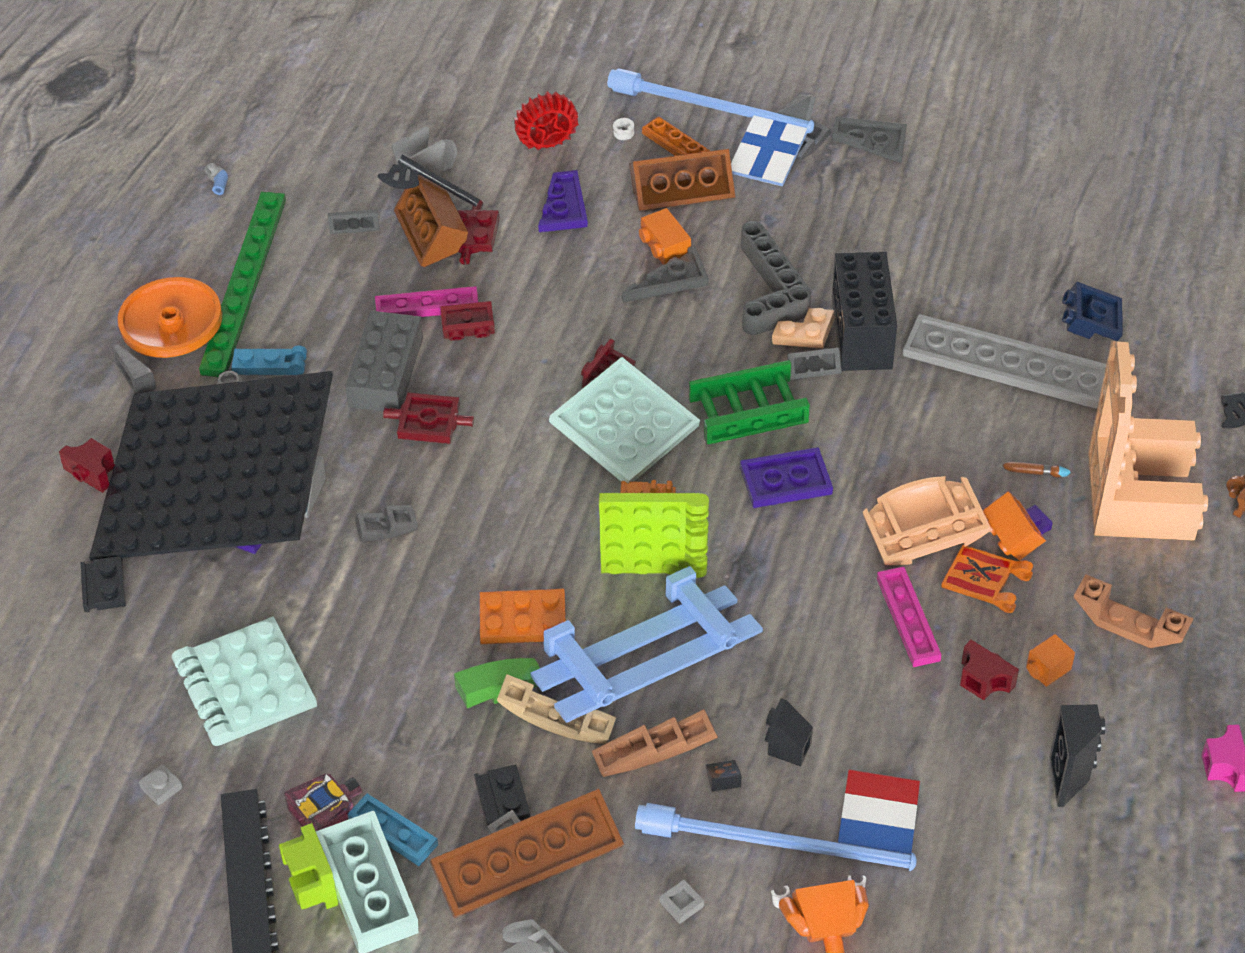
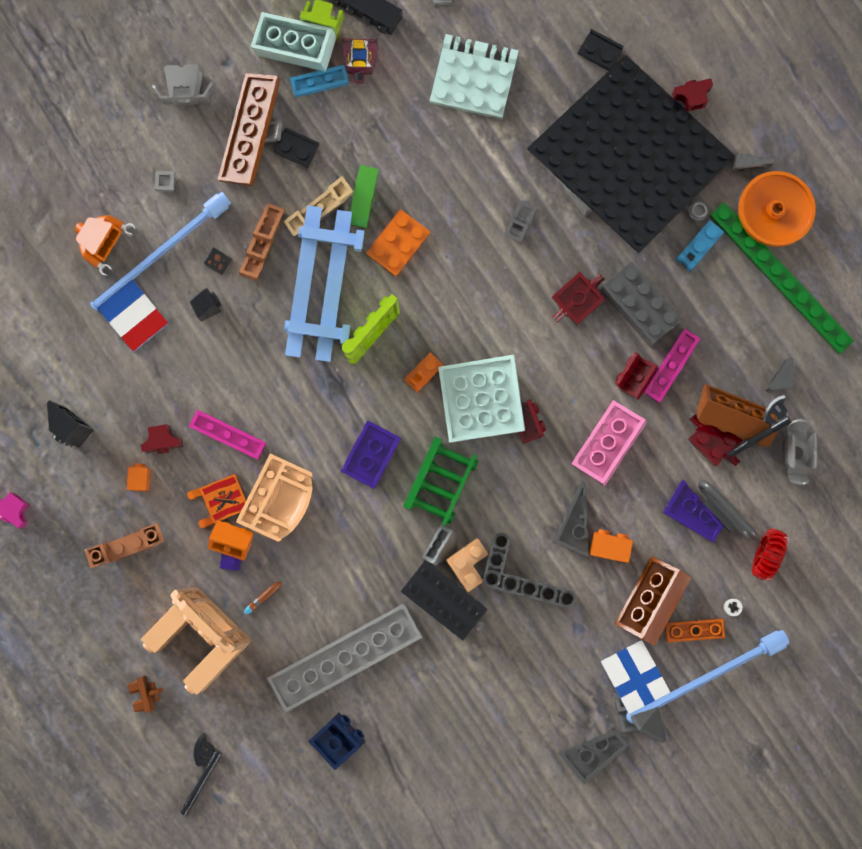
camera: 135 degrees right, 35 degrees up
(537, 176) = (725, 512): none -> dark grey bar
(560, 300) = (609, 443): none -> bright pink slope

